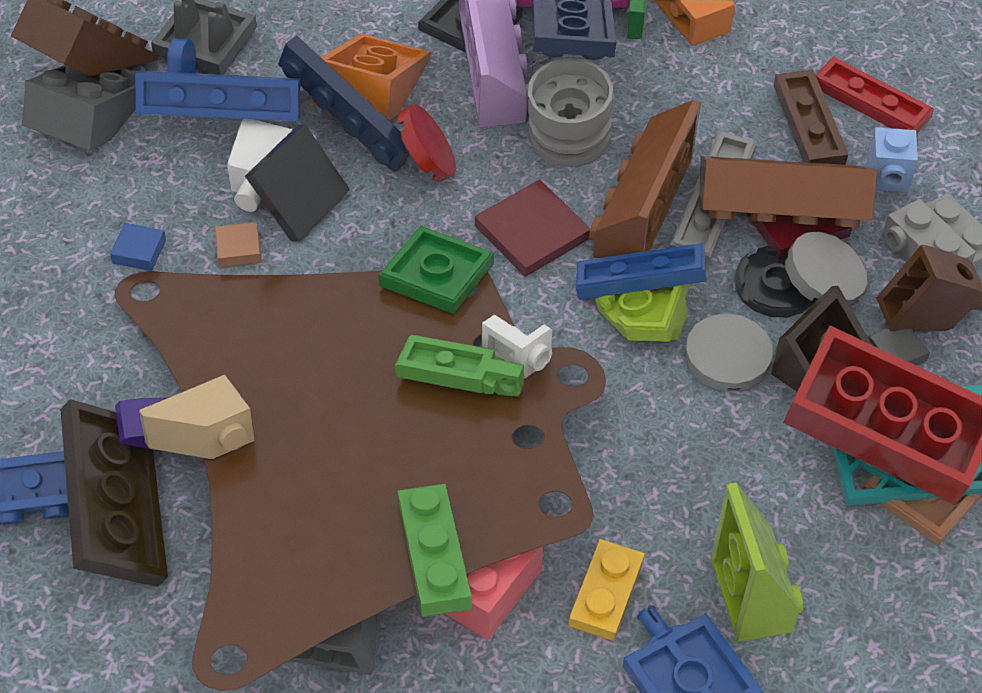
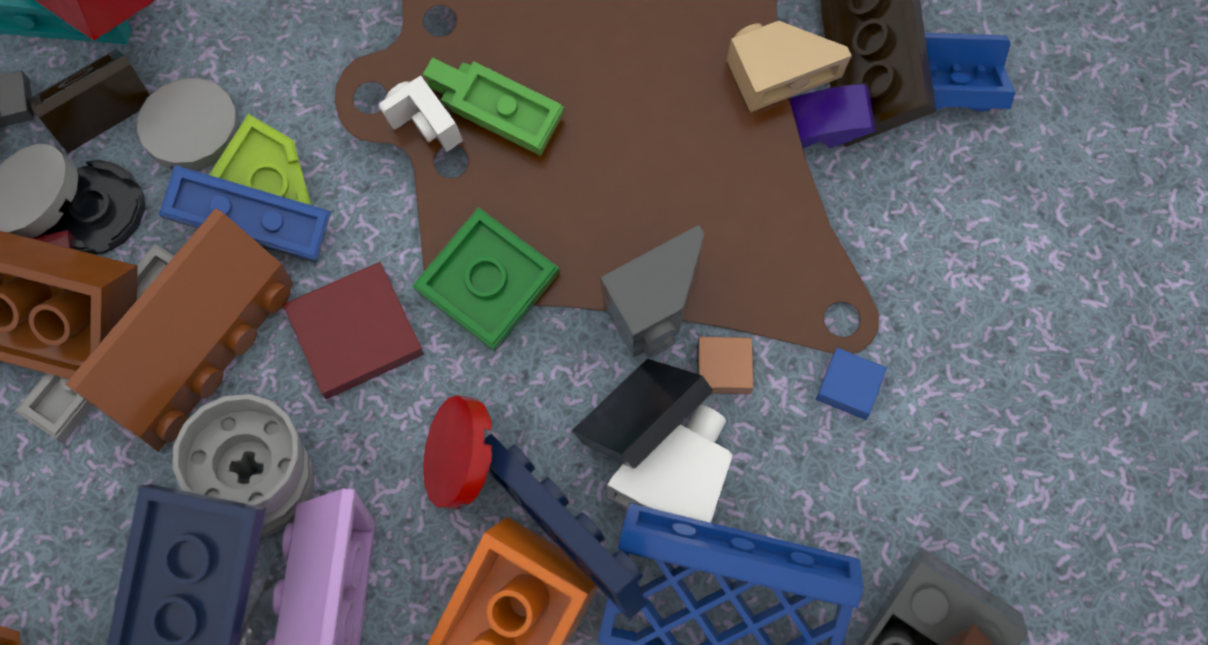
camera: 170 degrees left, 15 degrees up
(298, 245) = (652, 293): none -> dark grey slope

